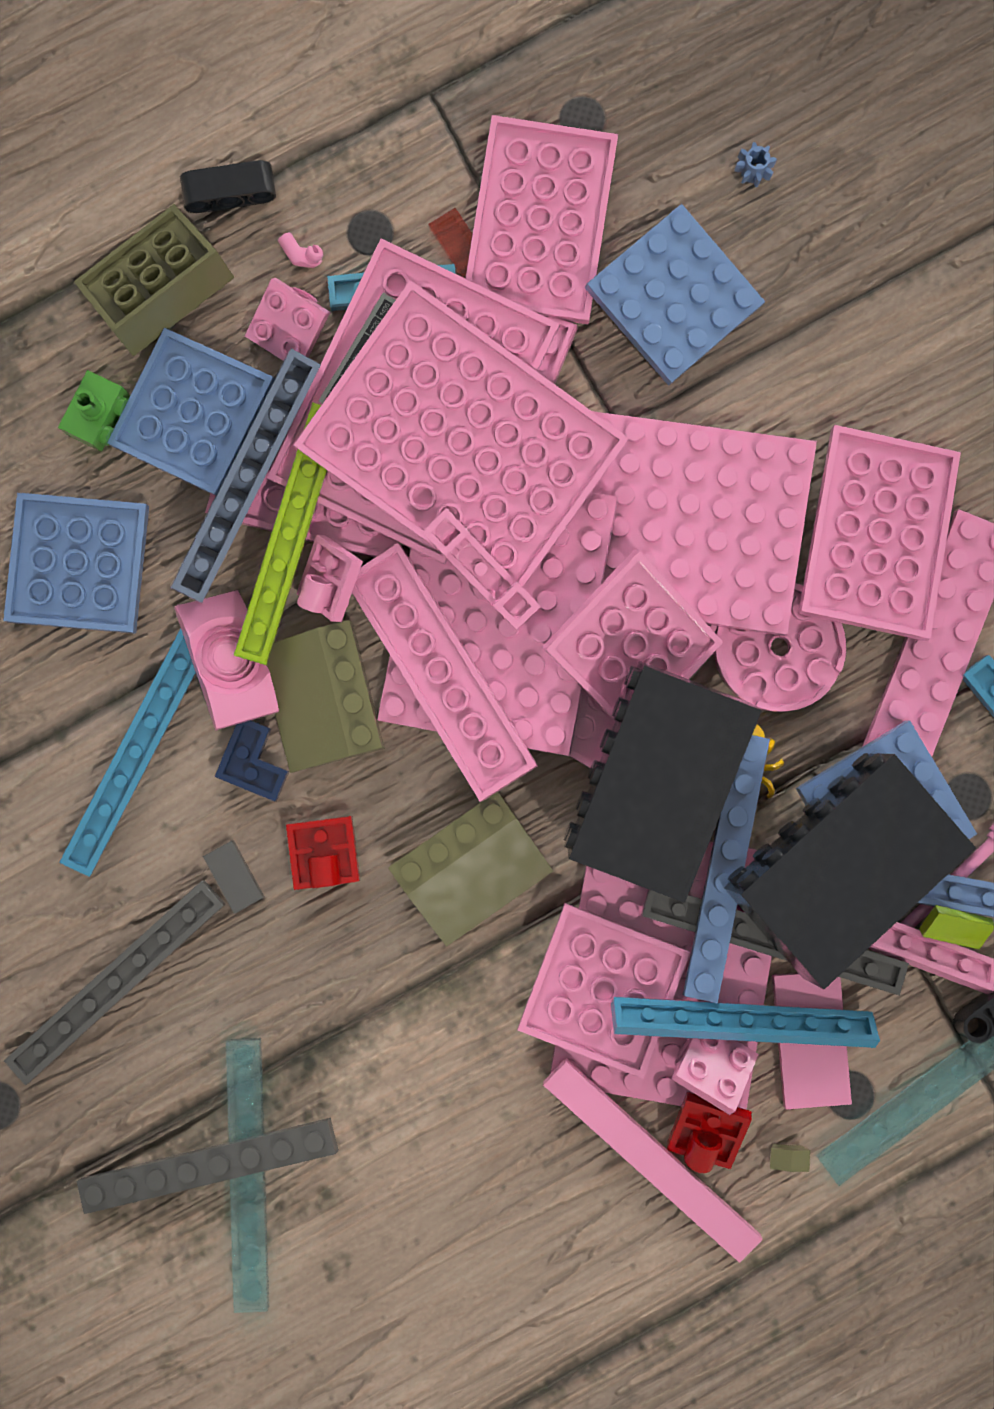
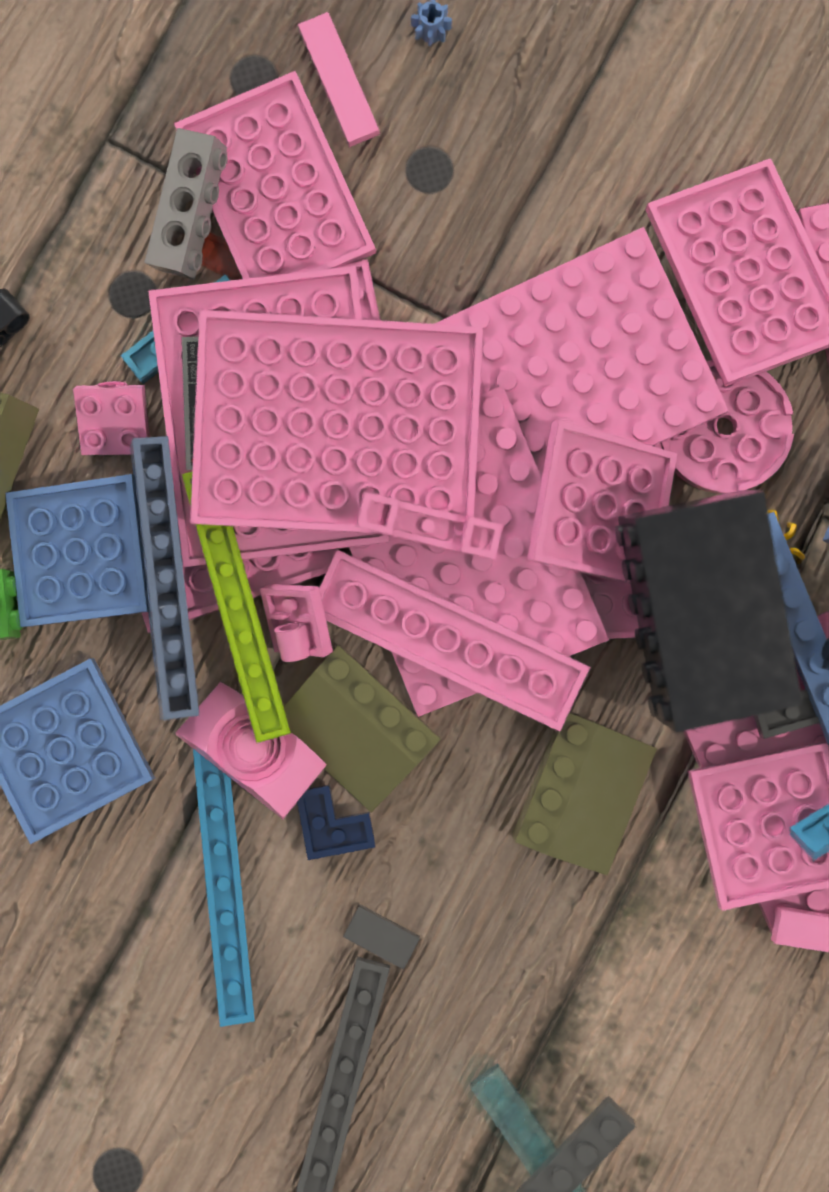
camera: 30 degrees left, 0 degrees up
(299, 256) = (88, 352): bright pink arm -> none
(323, 853) = (447, 865): red plate -> none
(461, 170) = (179, 187): none -> light grey brick
(650, 163) = (338, 79): none -> bright pink tile
(674, 294) = (435, 178): medium blue plate -> none

